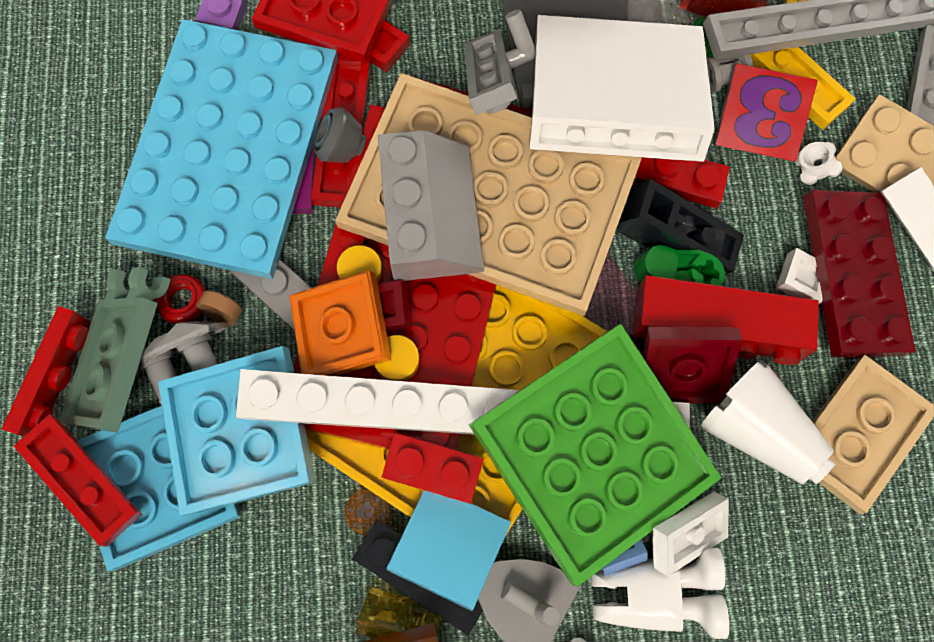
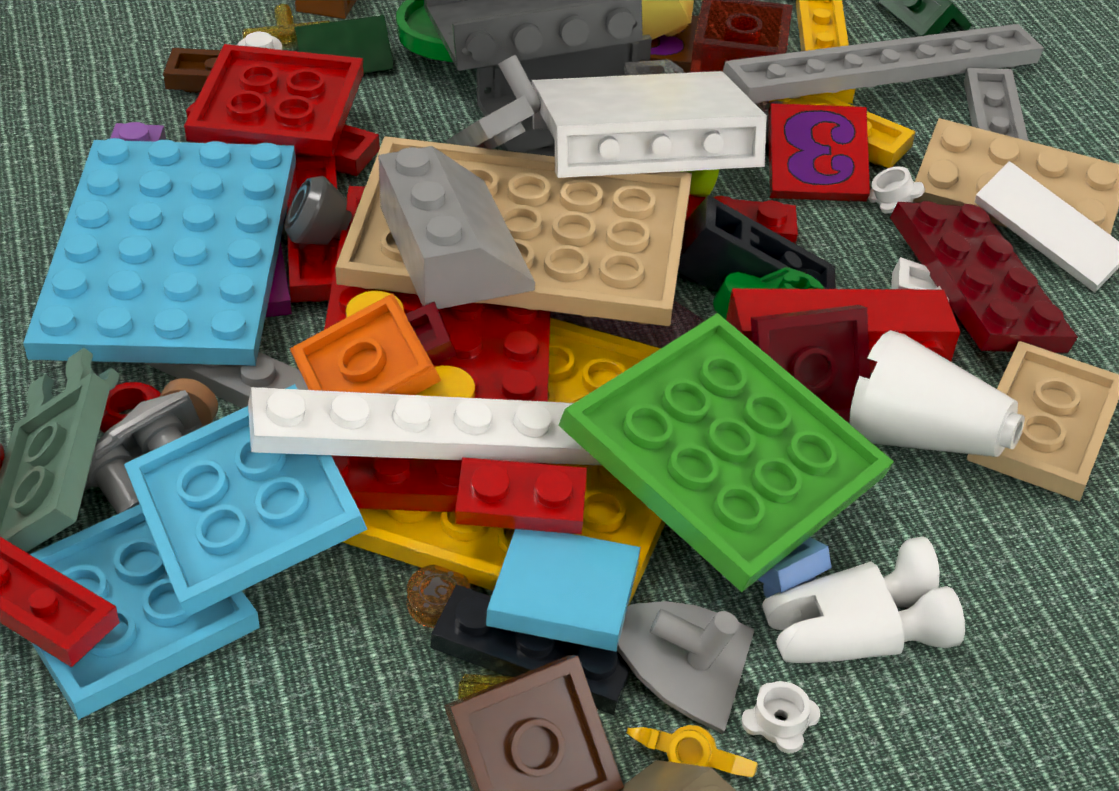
camera: 15 degrees left, 30 degrees down
(690, 533) = (873, 526): white plate -> none

